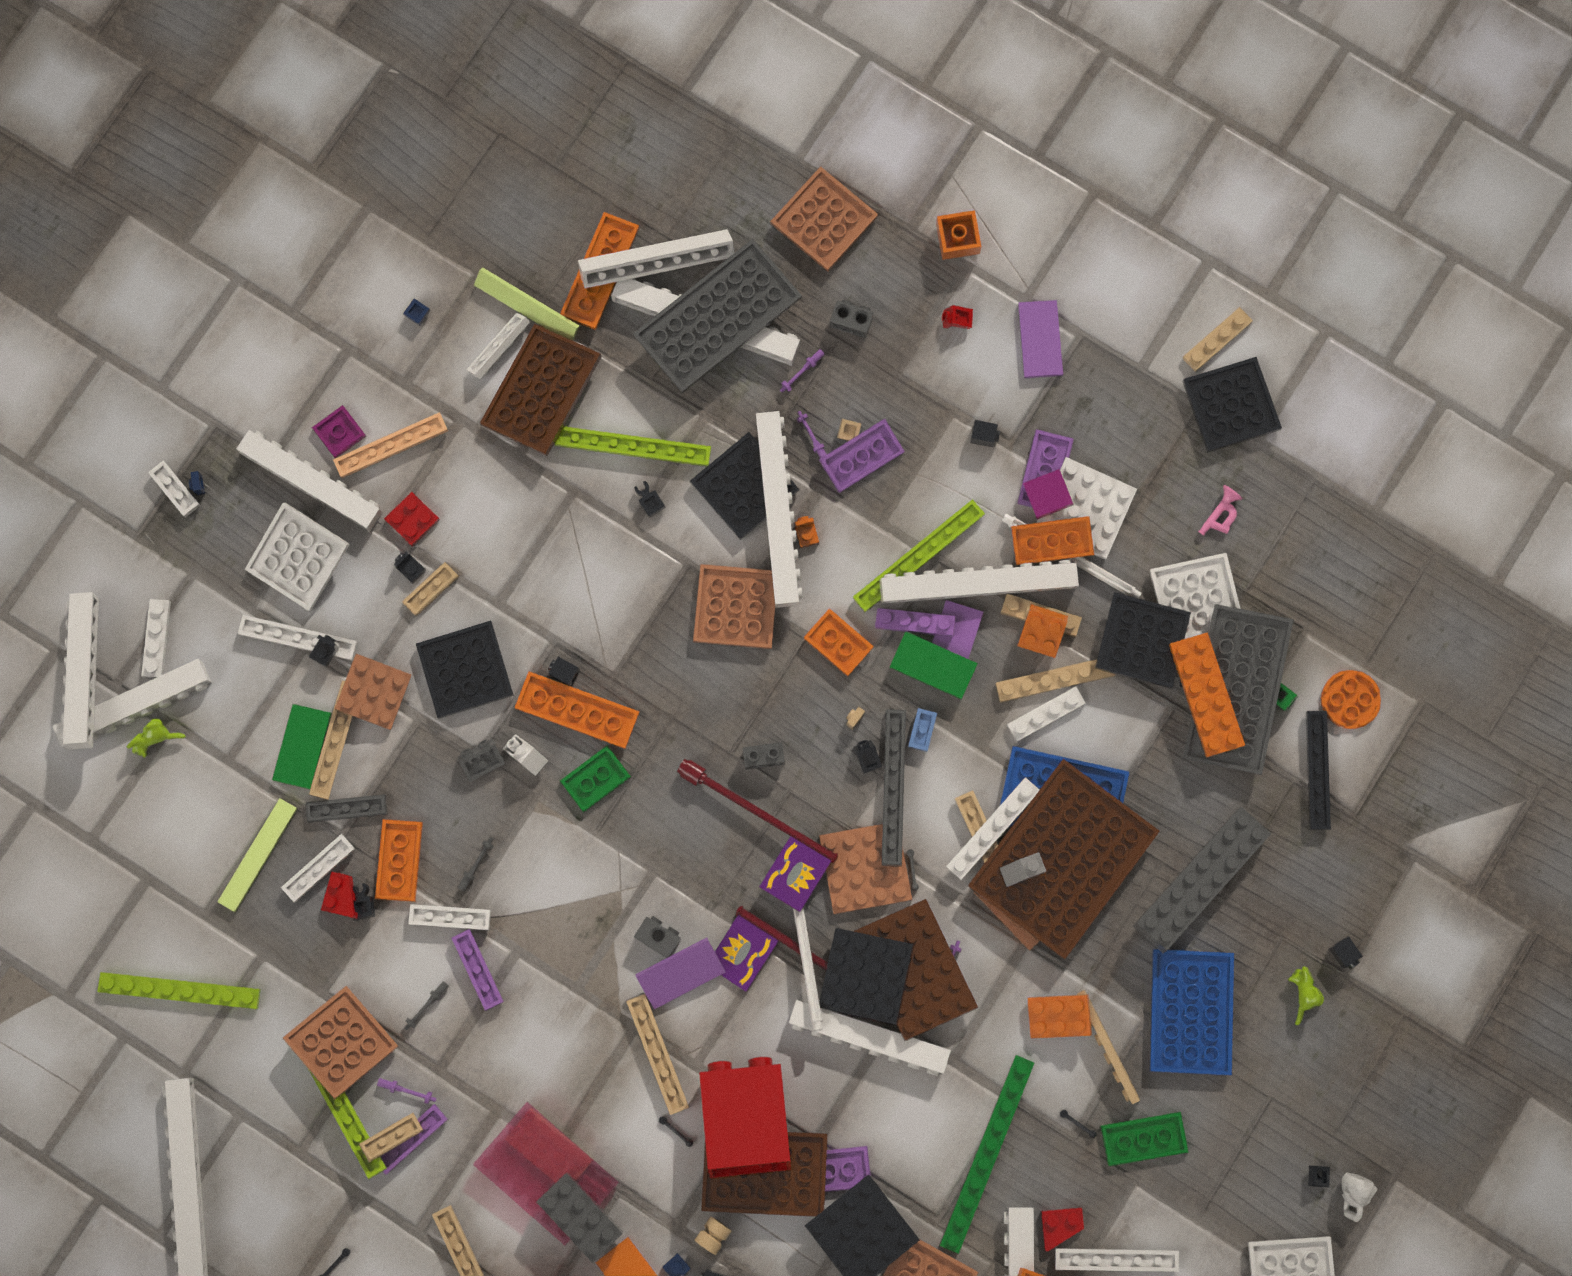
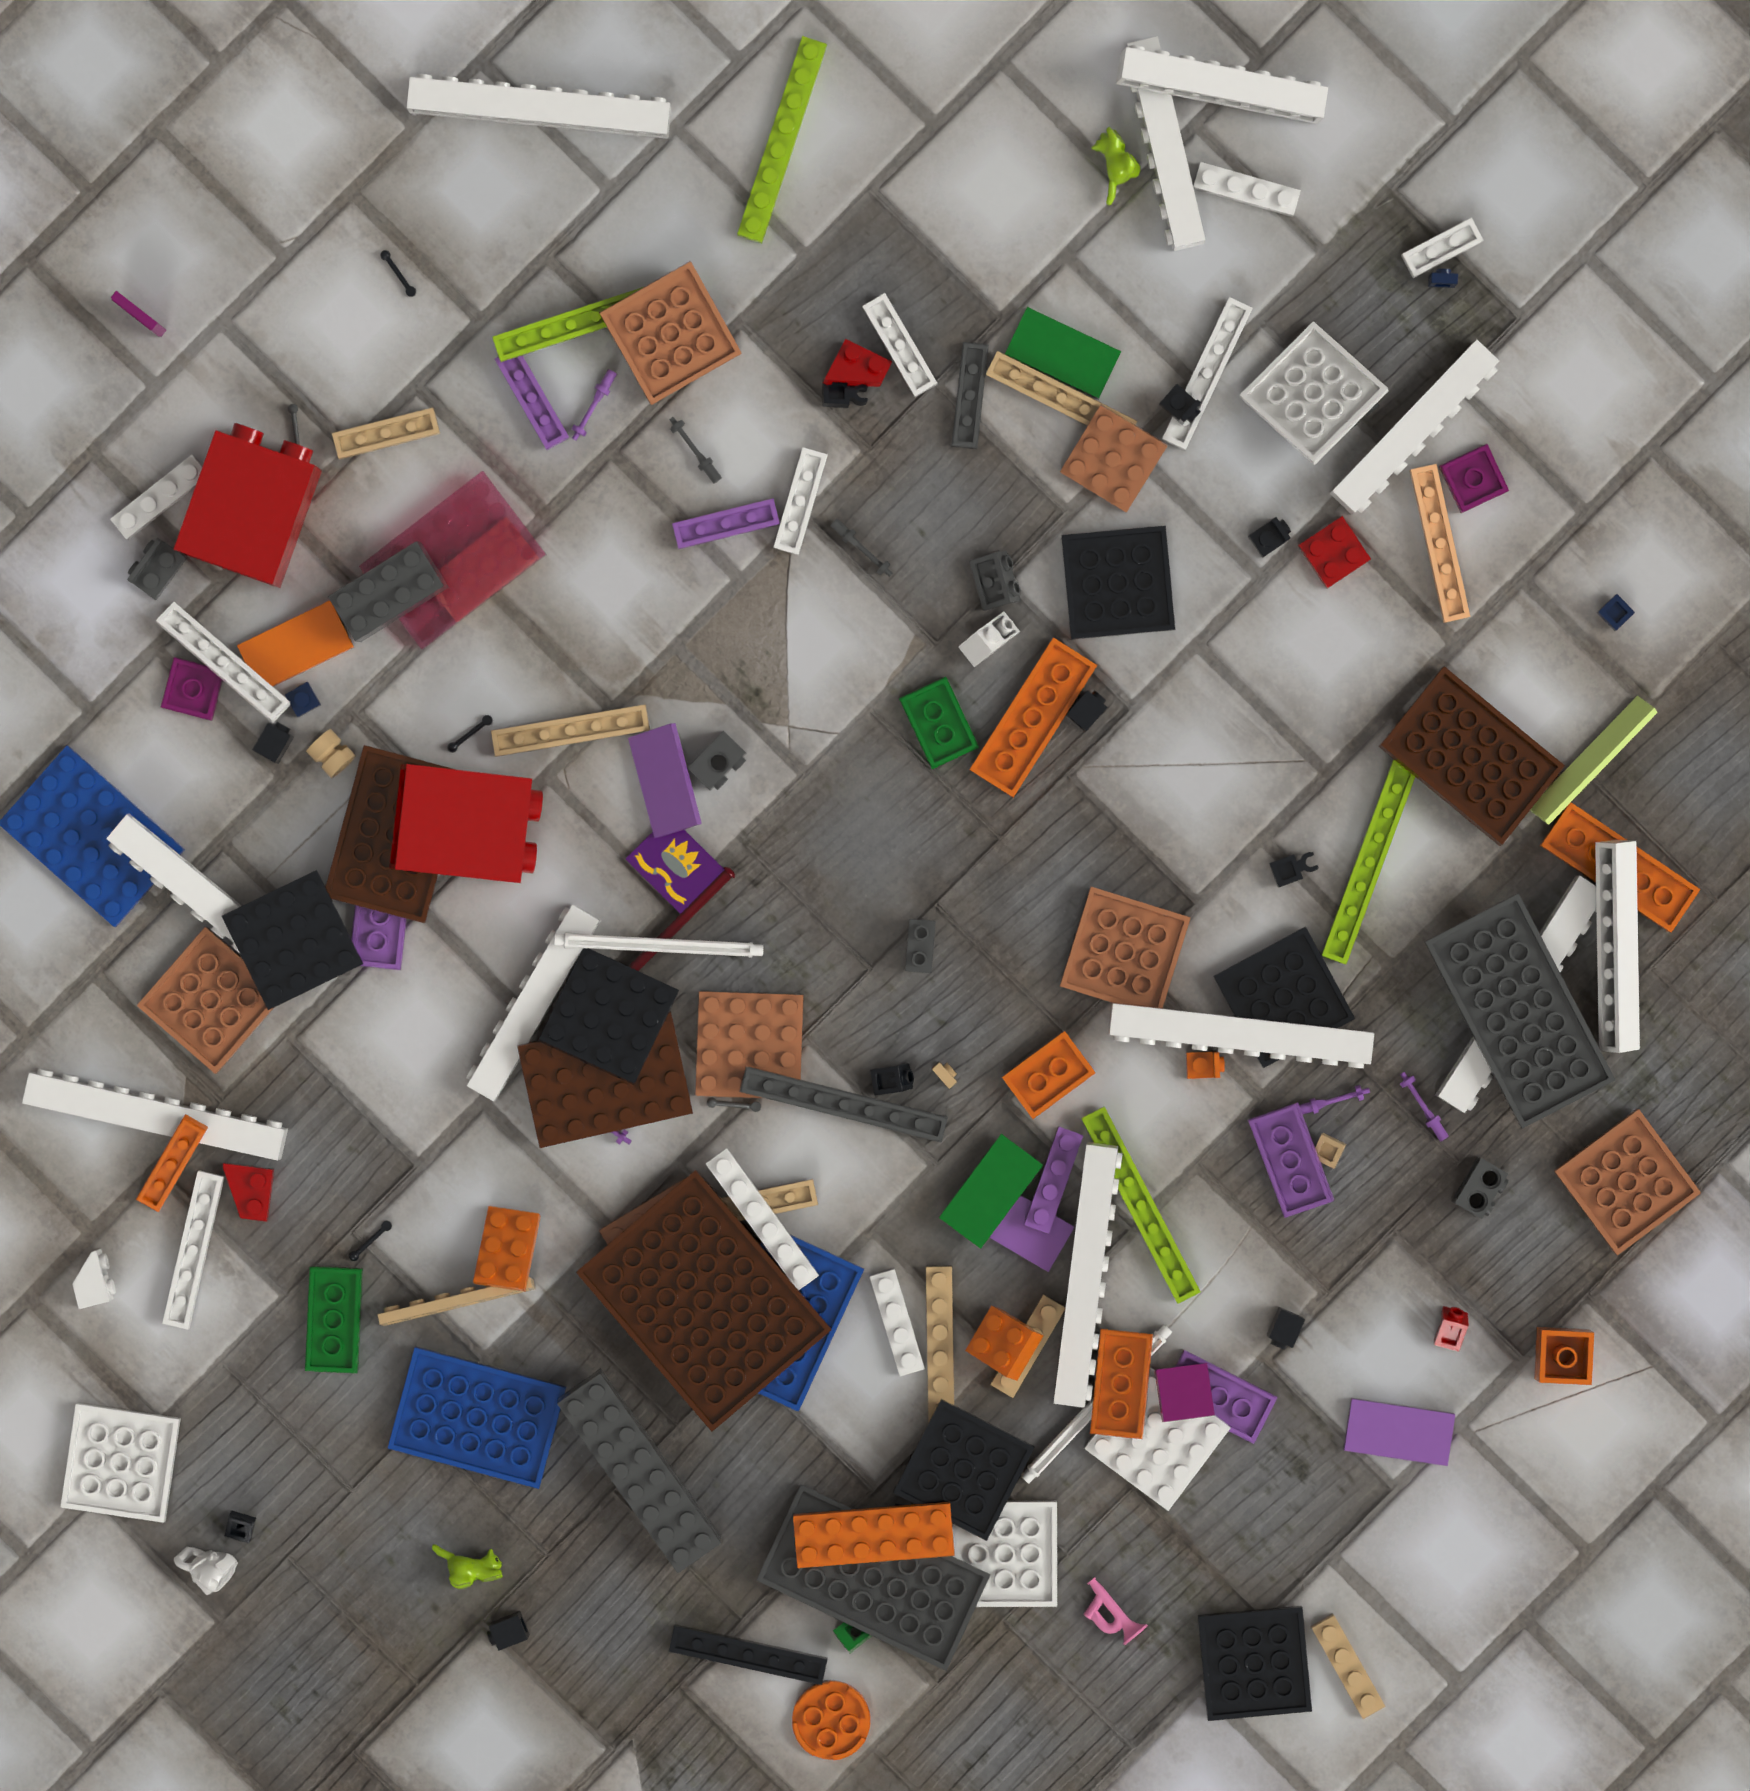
camera: 105 degrees right, 10 degrees up
(257, 855) = (934, 270): yellowish green tile -> none
(391, 1137) = (537, 374): tan tile -> none
(399, 860) = (888, 450): orange tile -> none
(430, 589) = (1235, 558): tan tile -> none
(498, 345) = (1545, 711): white plate -> none
(800, 860) = (772, 962): flag -> none
(922, 730) = (910, 1158): medium blue plate -> none
(986, 1154) = (358, 1118): green plate -> none
(1023, 869) = (698, 1245): light grey slope -> none

